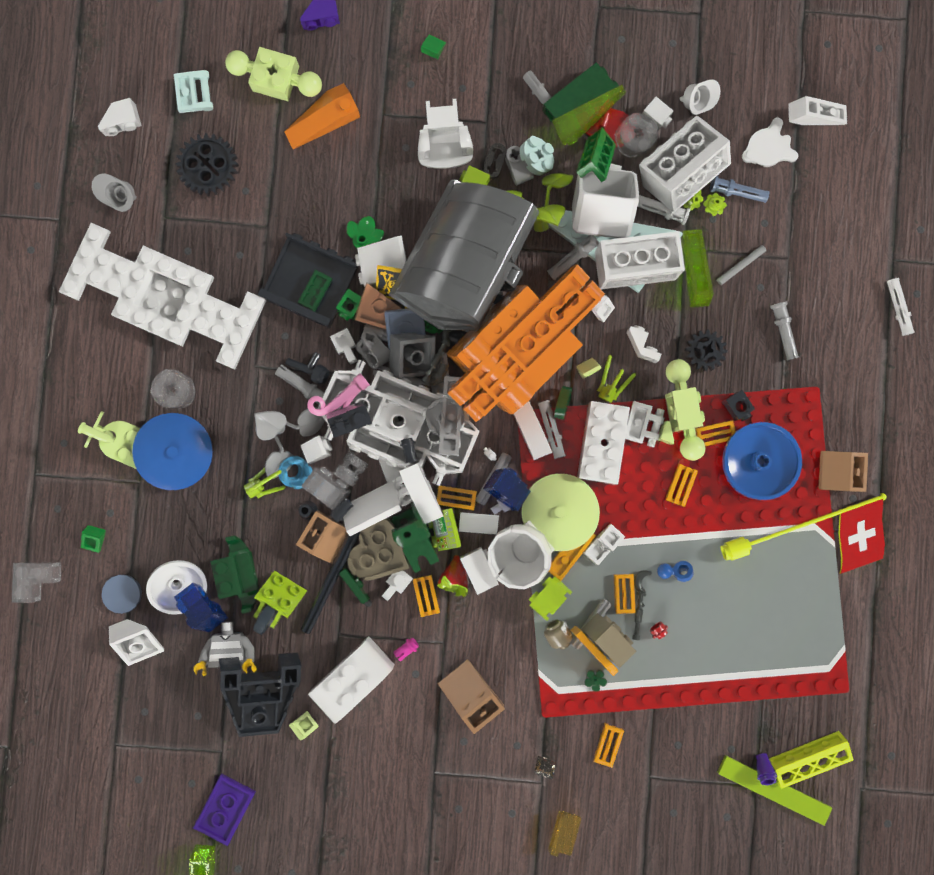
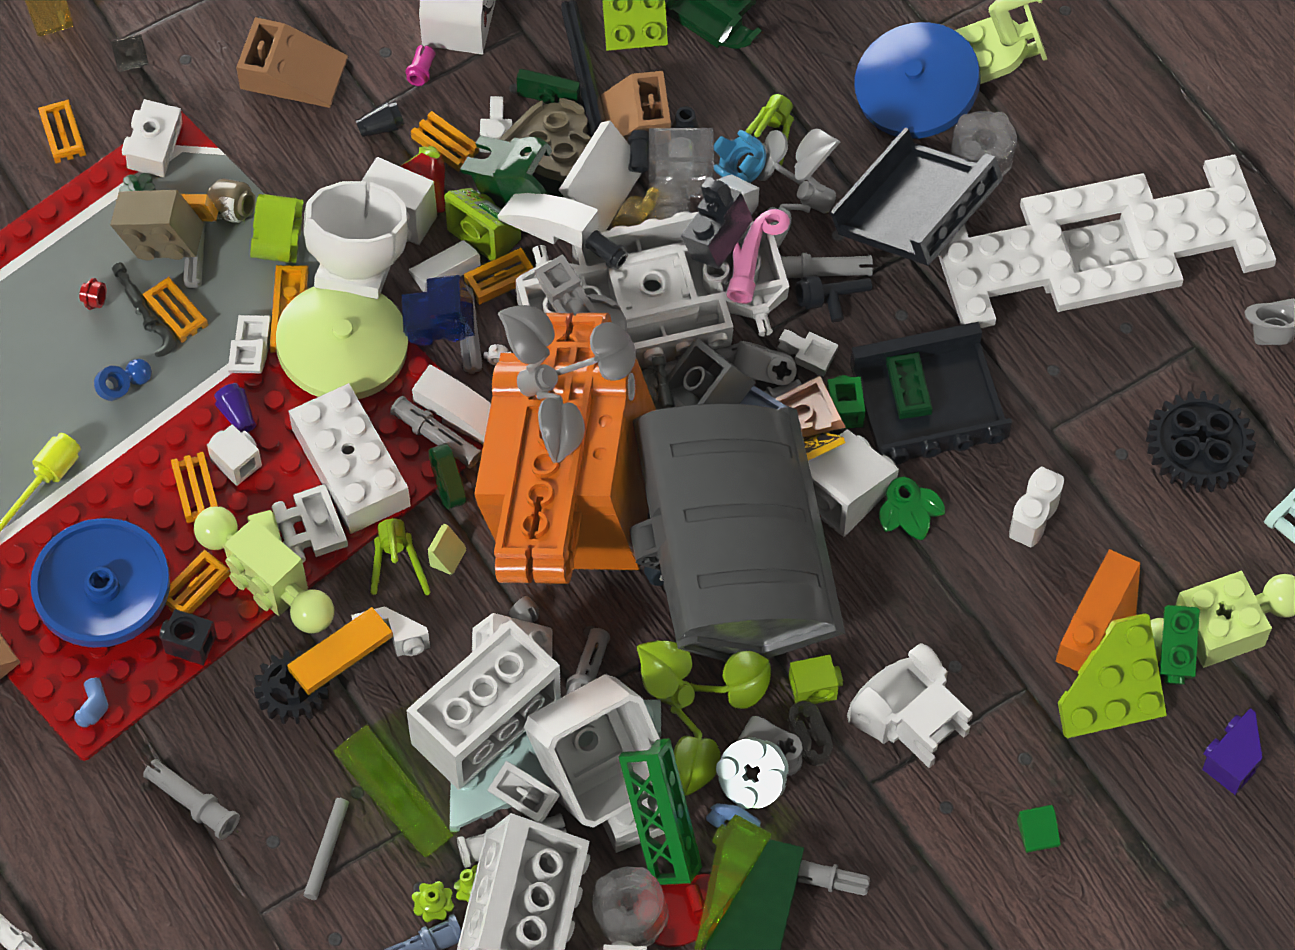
camera: 145 degrees right, 25 degrees down
(231, 382) = (914, 199): none -> black panel
(306, 69) = (1179, 644): none -> green bracket
(311, 186) = (1036, 507): none -> white brick
(347, 76) = (1116, 682): none -> lime plate
(369, 477) = (636, 209): none -> clear yellow piece
(449, 630) = (380, 120): none -> black cone
(518, 371) = (528, 335): none -> light grey plant
(559, 148) = (724, 812): none -> medium blue arm
(572, 700) = (153, 138): none -> white brick
(635, 513) = (235, 407): none -> dark purple cone
(645, 217) = (523, 792): none -> white slope
(653, 487) = (234, 454): none -> white brick
(677, 344) = (340, 650): none -> light orange tile
(799, 404) = (94, 706): none -> medium blue arm

